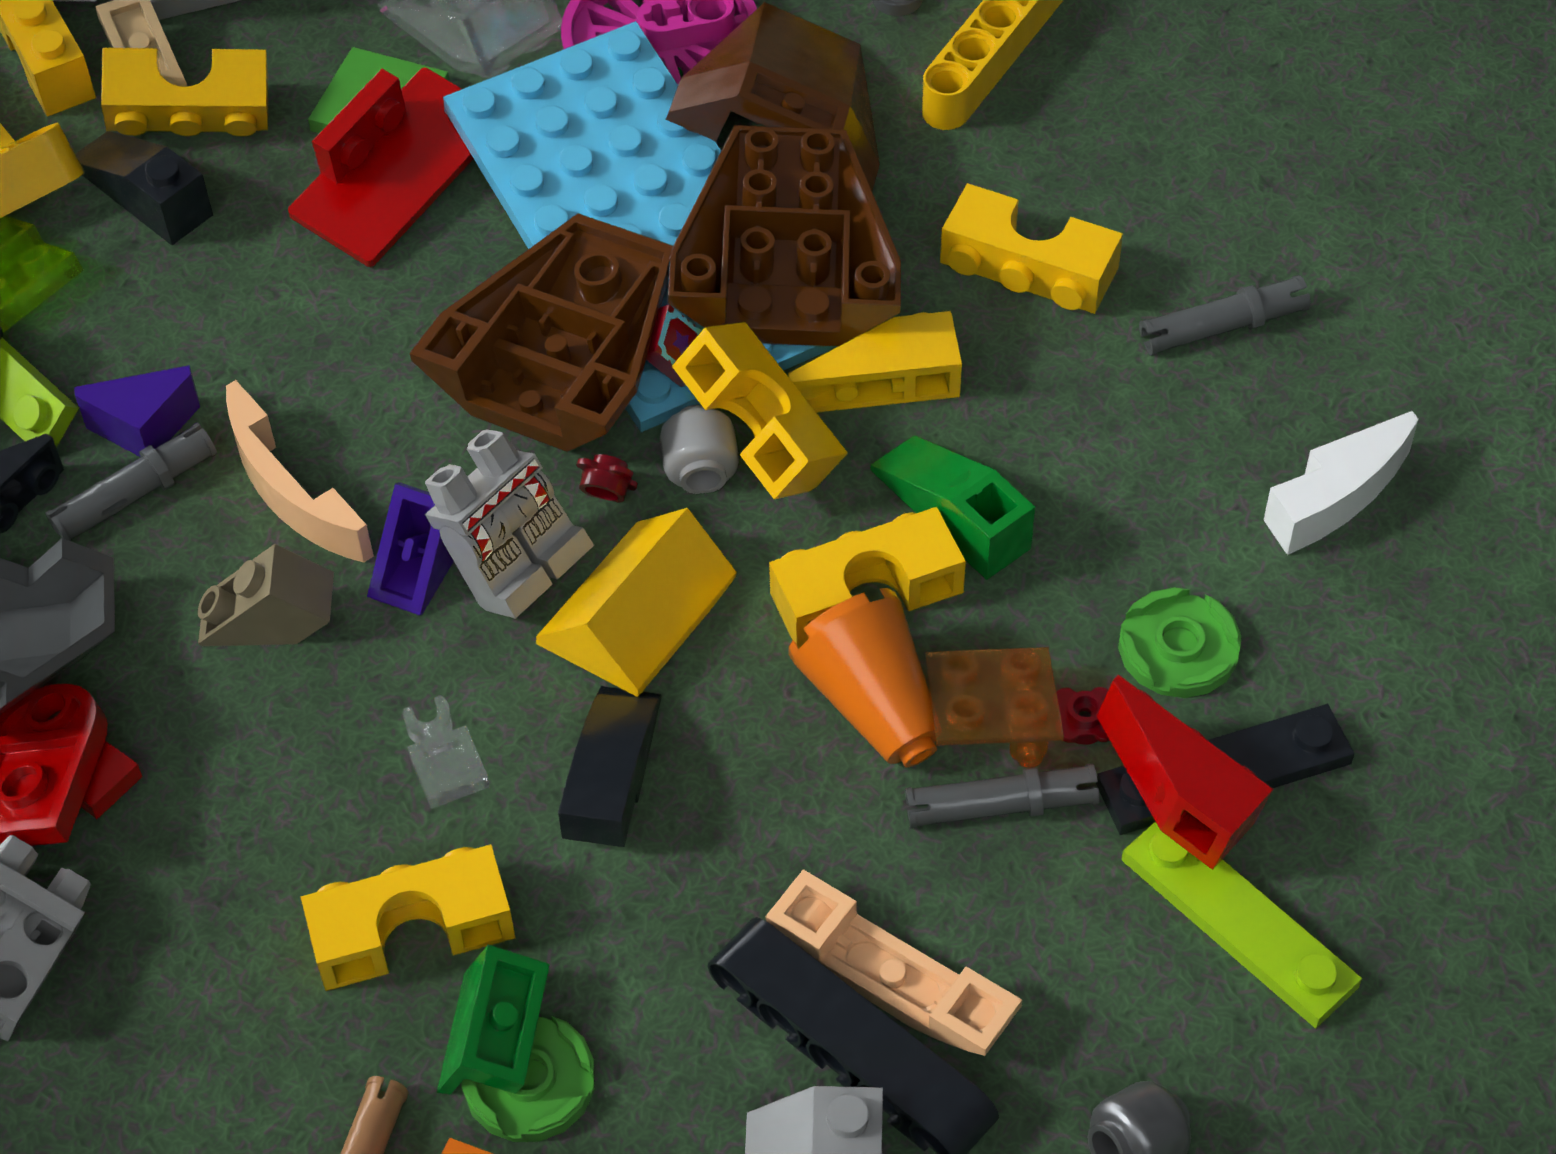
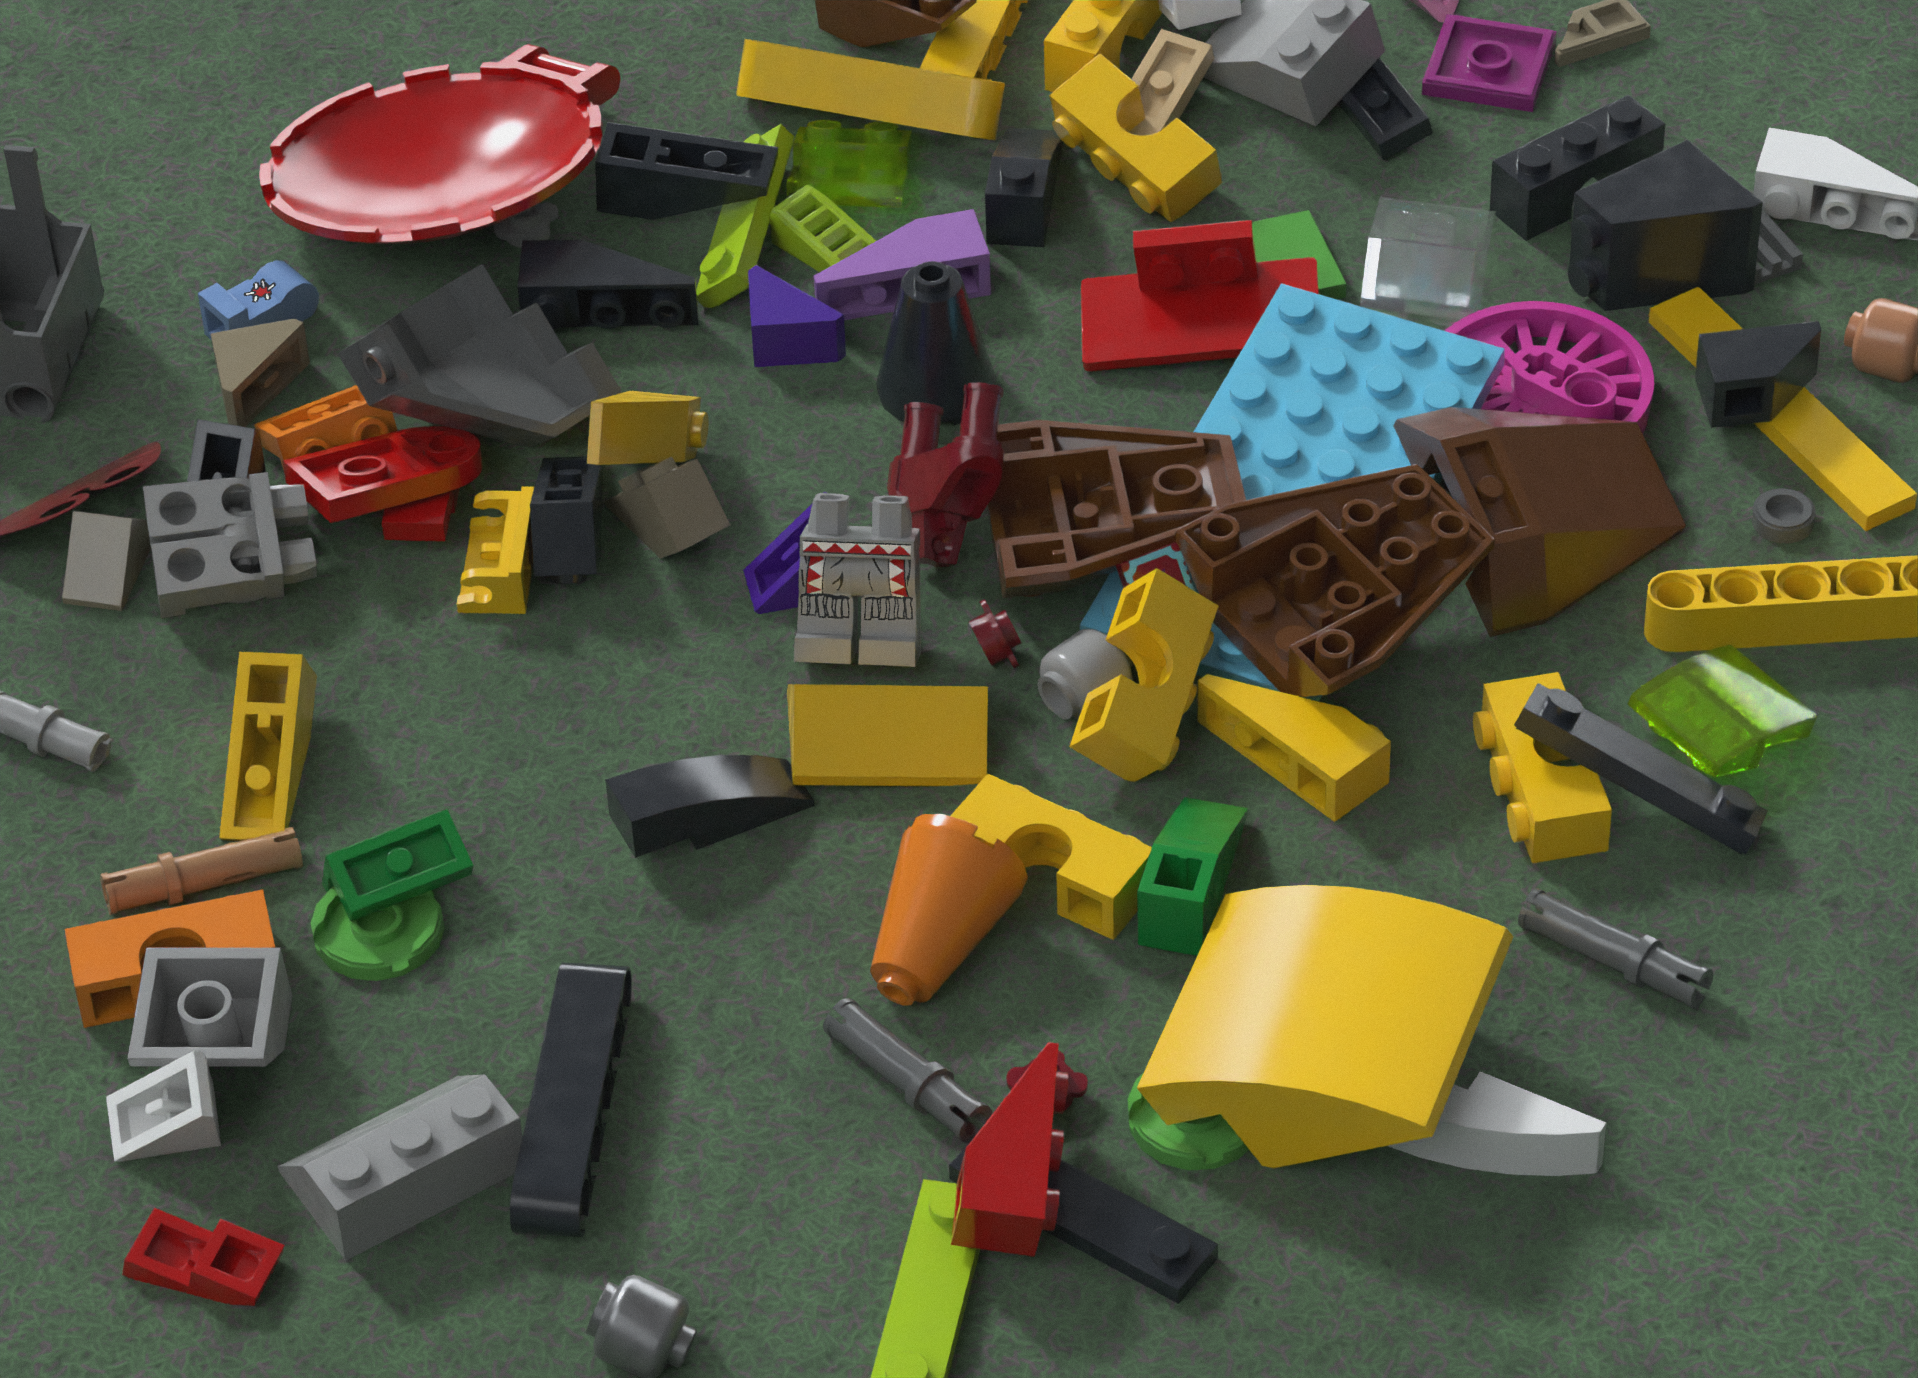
camera: 55 degrees right, 10 degrees down
(58, 350) = (805, 215): none -> lime slope
(152, 470) = (736, 367): dark grey pin -> none
(171, 288) = (871, 278): none -> medium lavender slope
(182, 562) = (645, 428): none -> yellow slope
(196, 746) = (498, 555): none -> yellow hinge
(205, 671) = (567, 519): none -> black slope
(265, 1045) = (267, 743): none -> yellow slope
(285, 337) = (932, 344): none -> black cone
(326, 519) = (818, 400): light nougat slope -> none
(355, 918) = (493, 781): yellow arch -> none
(442, 414) = (953, 481): none -> dark red connector
(444, 757) = (623, 704): clear plate -> none
(890, 973) = (665, 1078): light nougat slope -> none
(995, 700) = (987, 1000): clear orange hinge -> none
(1059, 129) = (1721, 711): none -> clear neon green slope
(1091, 197) = (1568, 728): none -> black plate
(1204, 504) = (1325, 1019): none -> yellow slope

